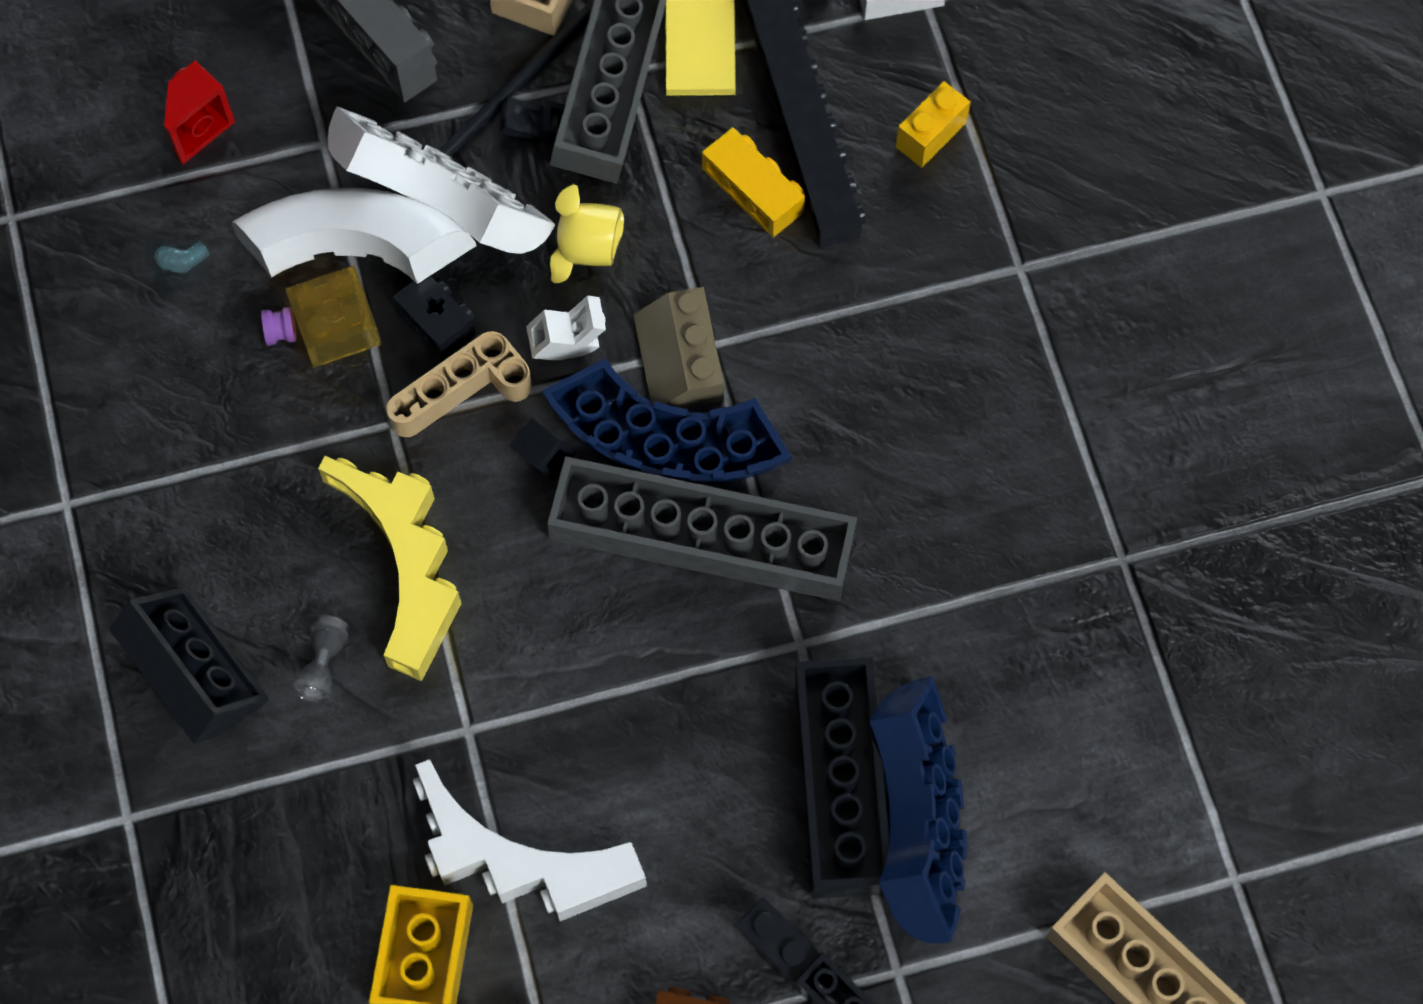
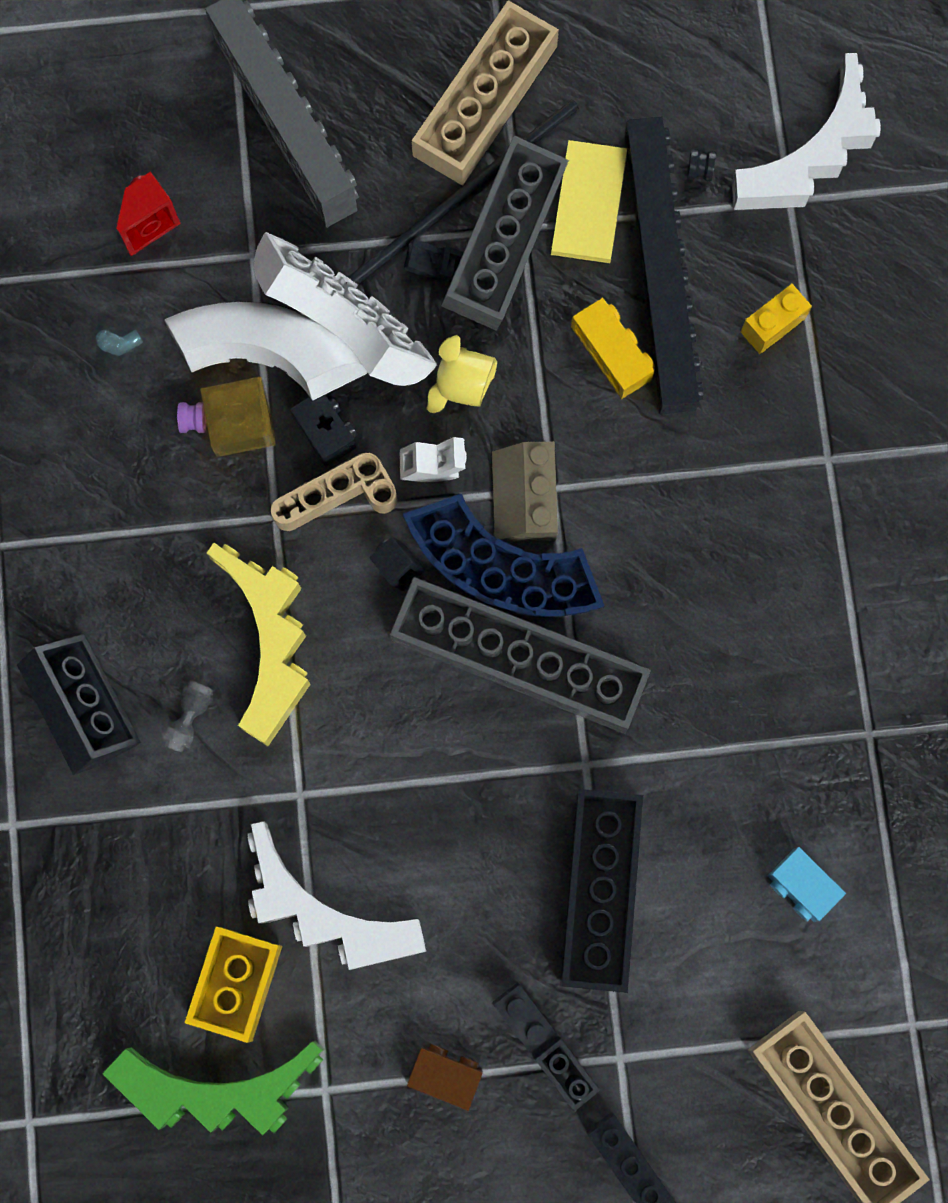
camera: 10 degrees right, 10 degrees up
(924, 805) = (663, 933): dark blue brick -> none
(1079, 736) = (805, 885): none -> medium azure brick

